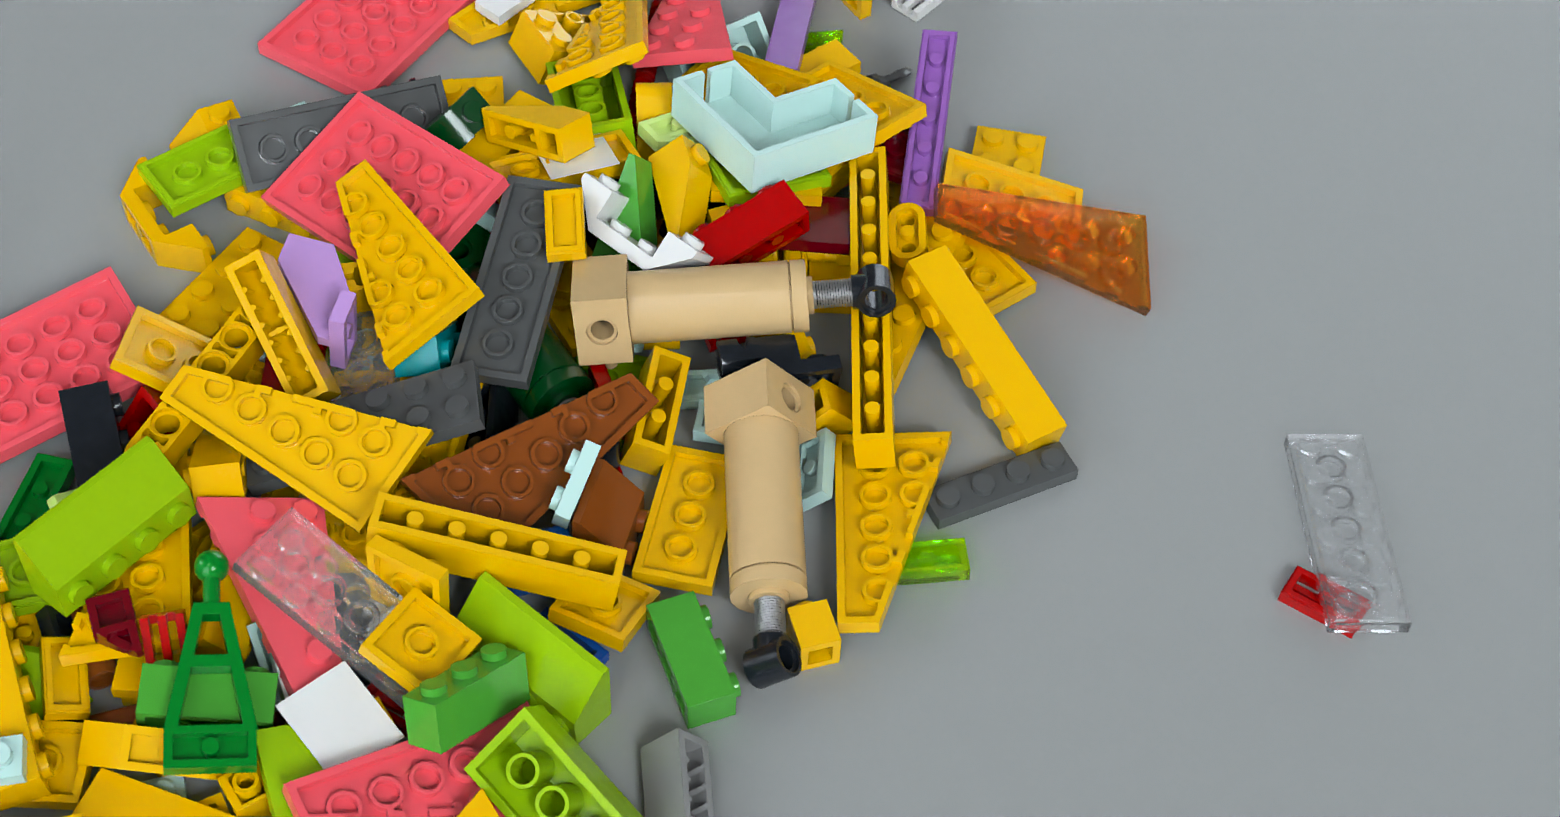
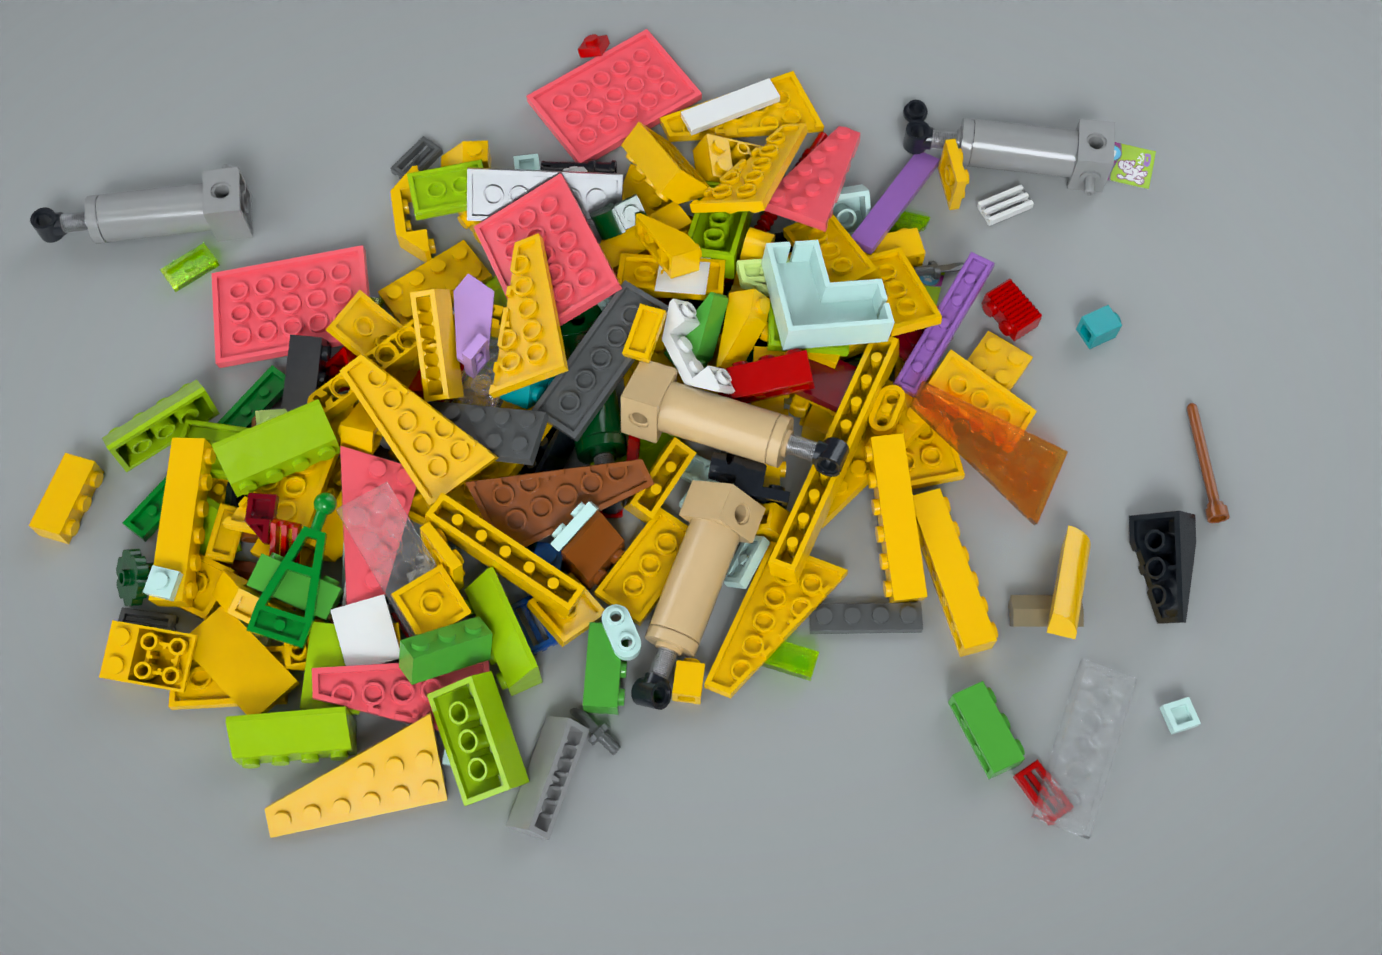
camera: 25 degrees right, 15 degrees up
(152, 146) = (422, 160): none -> dark grey tile
(482, 58) = (663, 166): none -> yellow slope
(694, 596) = (620, 631): none -> light aqua plate
(722, 743) = (598, 733): none -> dark grey piece
(994, 94) = (1011, 310): none -> red brick
(1089, 402) = (952, 575): none -> yellow brick
(1105, 81) = (1099, 326): none -> teal brick
(1214, 399) = (1033, 611): none -> dark tan piece
(1218, 553) = (987, 729): none -> bright green brick
(1227, 353) = (1069, 584): none -> yellow brick
(1320, 294) = (1166, 559): none -> black wedge
(1347, 227) = (1216, 510): none -> dark orange piece
(1434, 455) = (1180, 715): none -> light aqua plate

